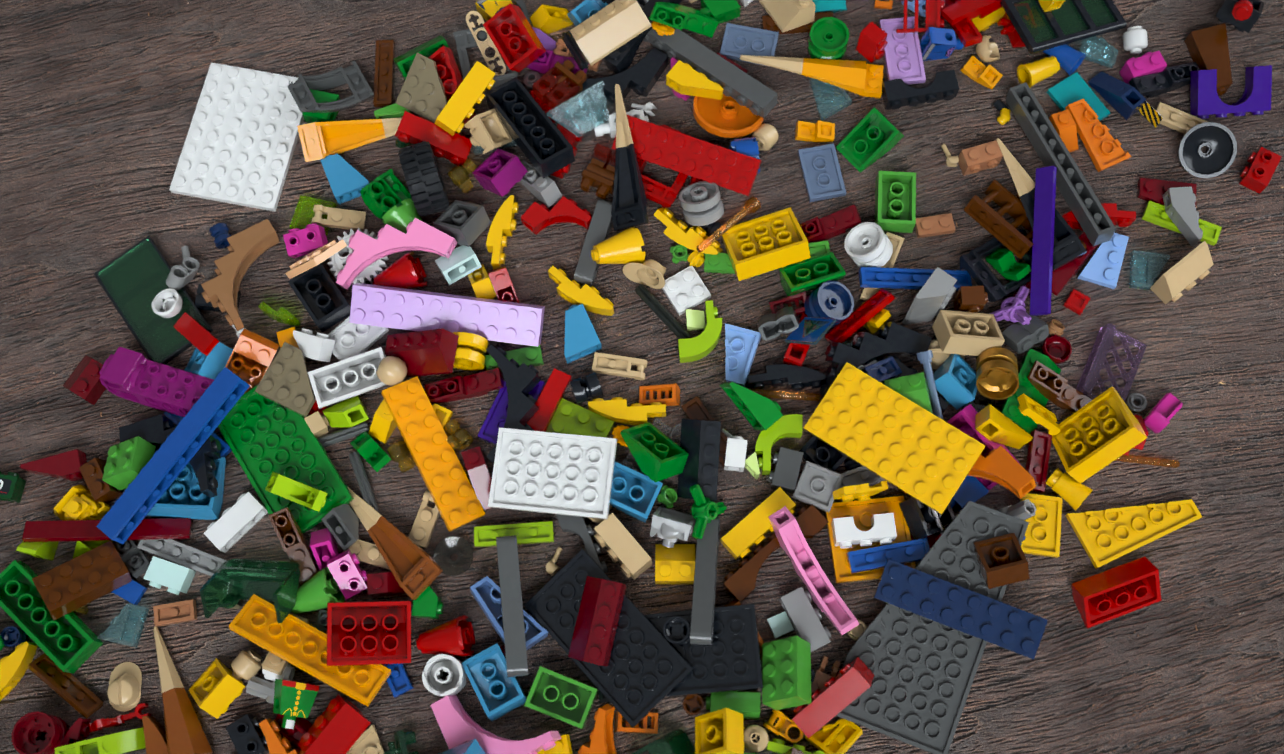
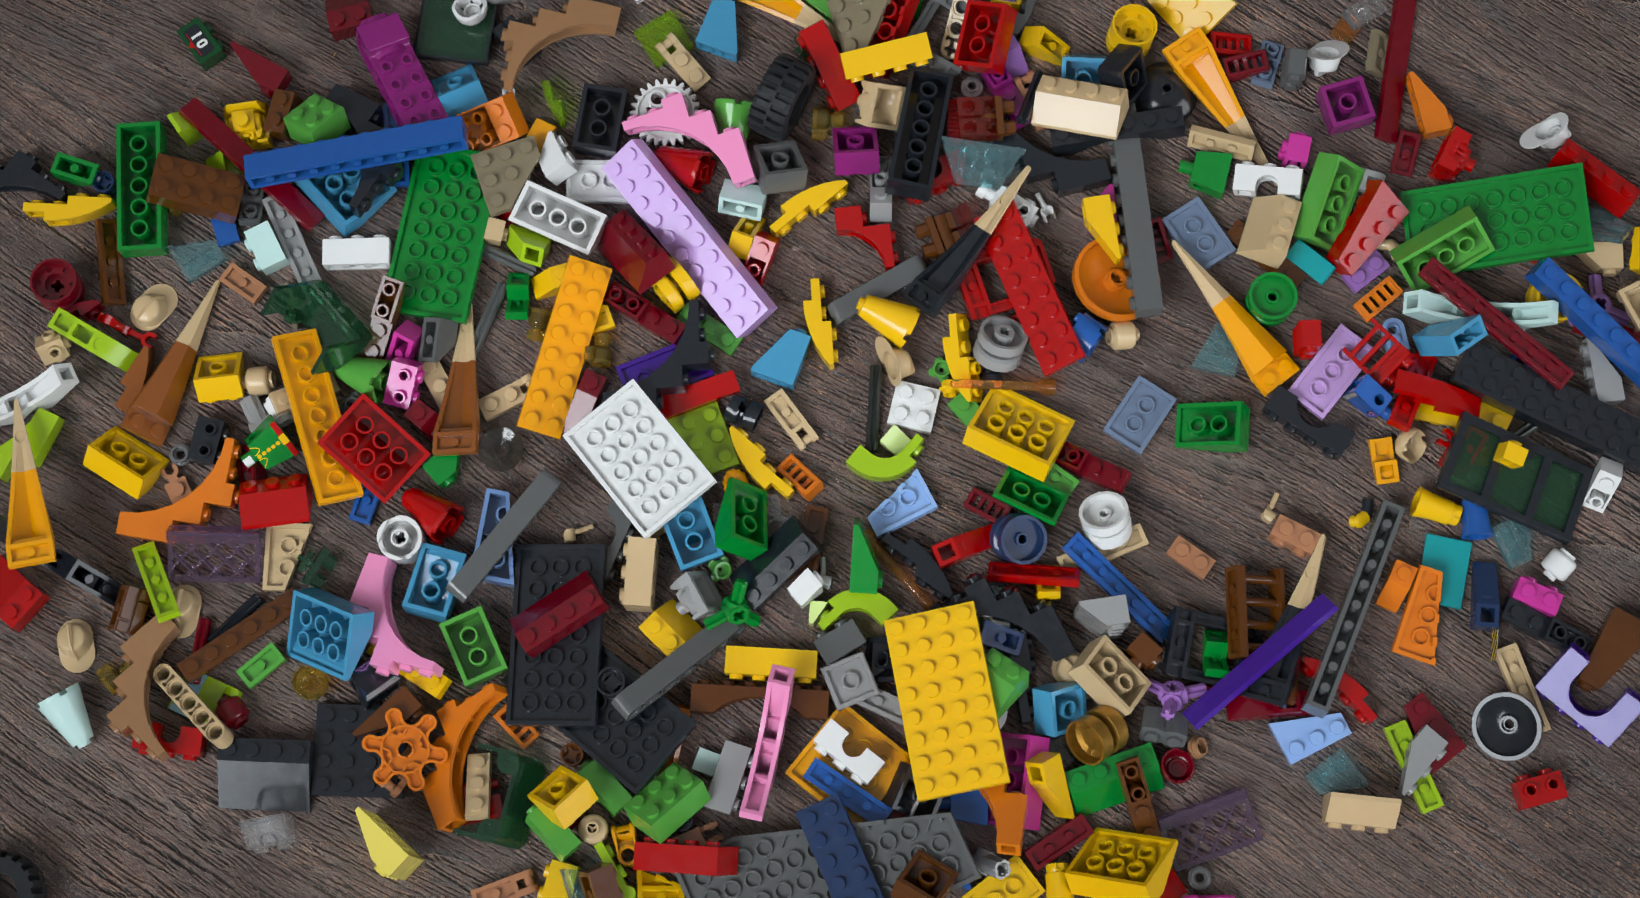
camera: 45 degrees right, 5 degrees up
(196, 333) = (468, 58): red tile -> none
(296, 492) = (425, 276): lime arch -> none
(304, 241) = (635, 58): dark pink brick -> none
(315, 258) = (622, 85): light nougat plate -> none
(384, 194) = (739, 77): green slope -> none
(392, 370) = (595, 245): tan hair -> none
(526, 533) = (573, 483): lime plate -> none
(662, 29) = (1127, 149): light orange piece -> none
(683, 17) = (1158, 154): green slope -> none
(773, 325) = (957, 511): dark grey brick -> none
(810, 330) = (974, 545): piece -> none
(813, 132) = (1173, 372): light orange slope -> none
(856, 632) = (766, 826): tan plate -> none
(861, 492) = (879, 720): yellow wing -> none
(895, 201) = (1173, 503): bright green brick -> none
(926, 358) = (1046, 662): sand blue piece -> none
(1039, 414) = (1096, 803): yellow plate -> none
(1076, 301) = (1243, 744): red tile -> none

